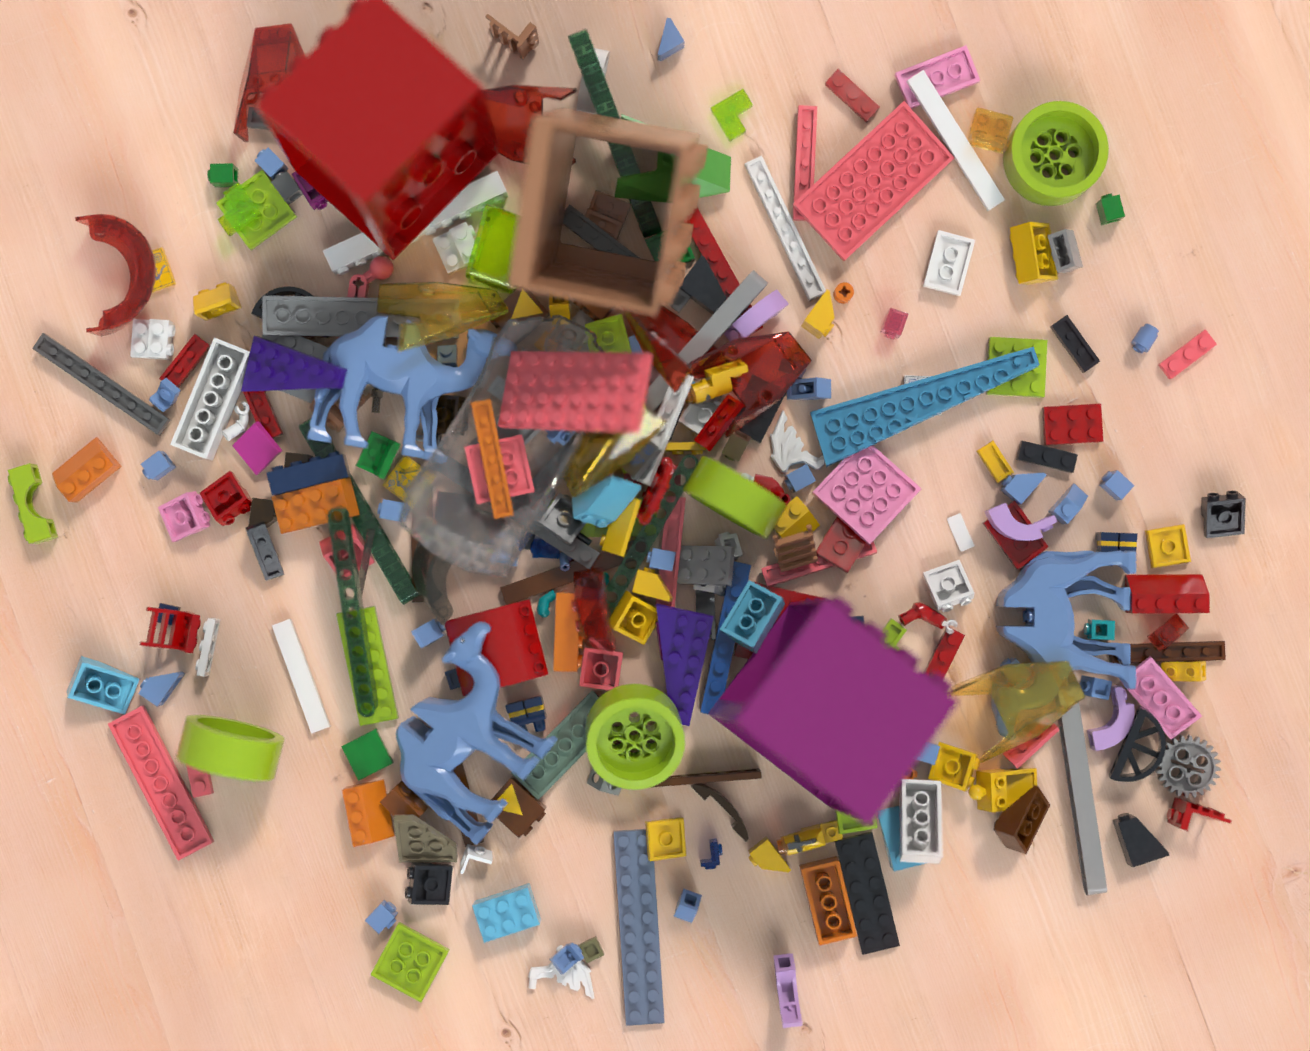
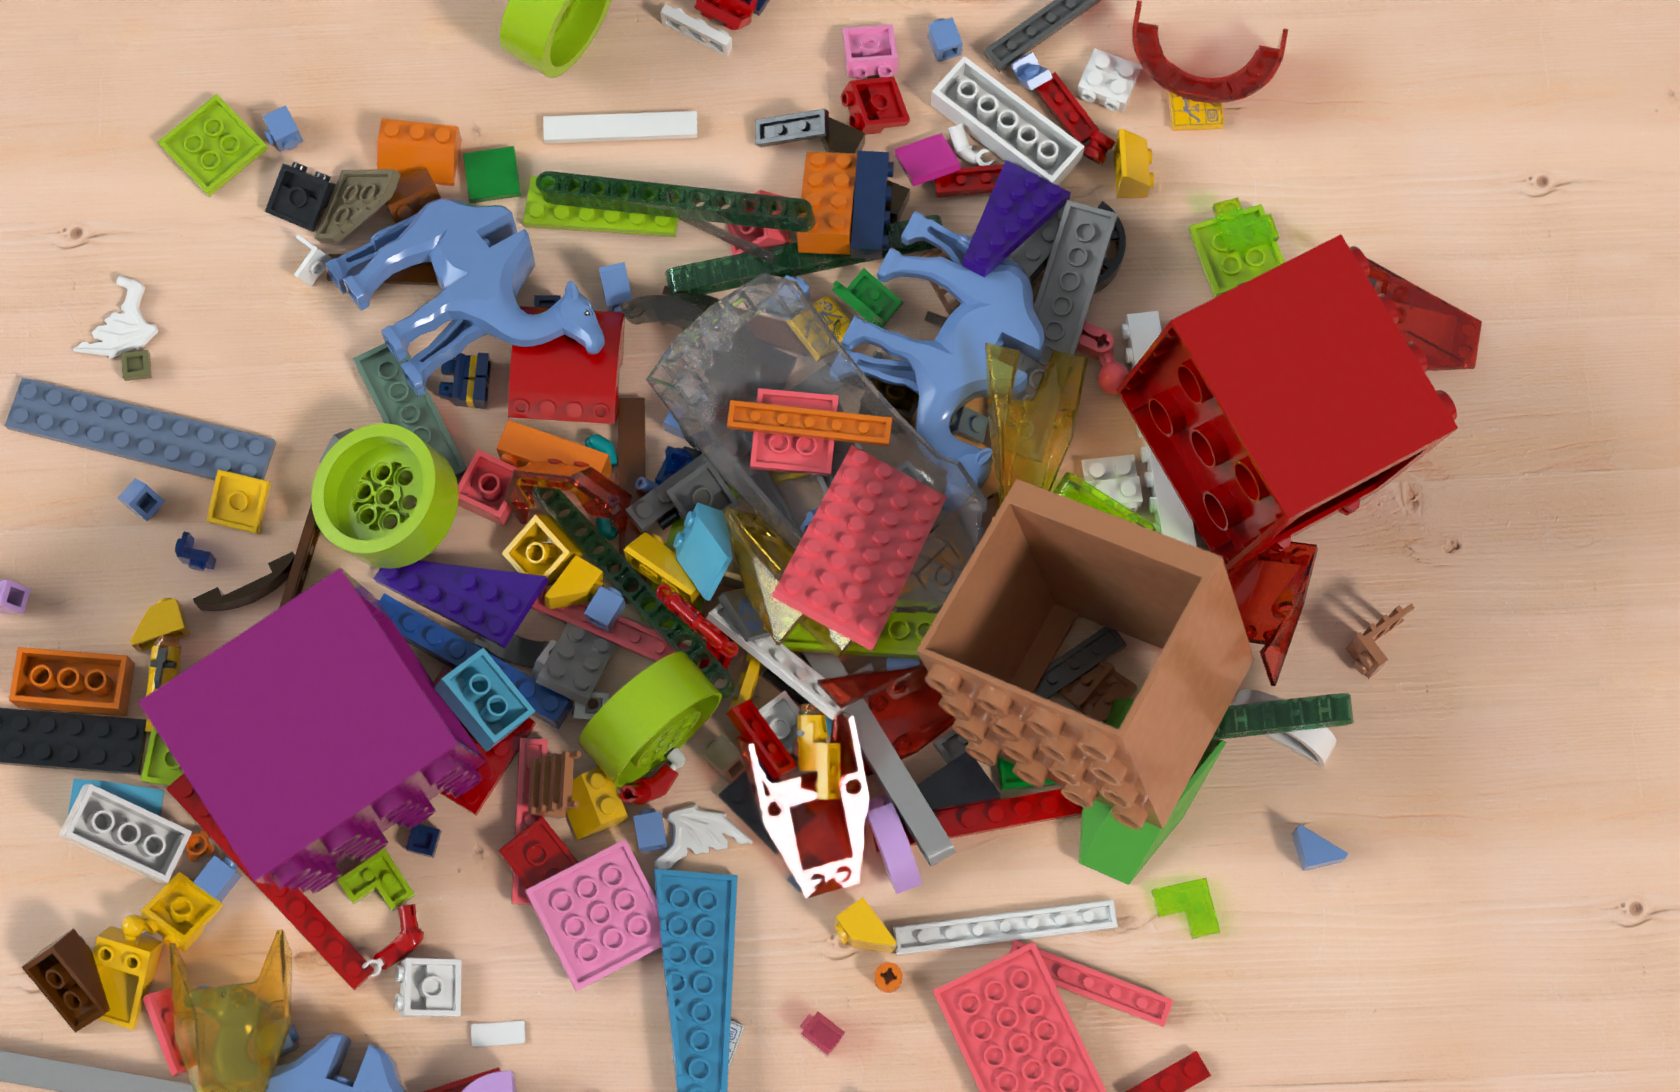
camera: 105 degrees right, 15 degrees down
(208, 329) = (1098, 147): none -> red wheel
(223, 175) = (1295, 224): green brick -> none
(506, 912) = (225, 276): medium azure brick -> none
(521, 807) = (350, 330): reddish brown brick -> none
(567, 957) = (138, 329): medium blue bracket -> none
(810, 389) = (768, 885): medium blue slope -> none

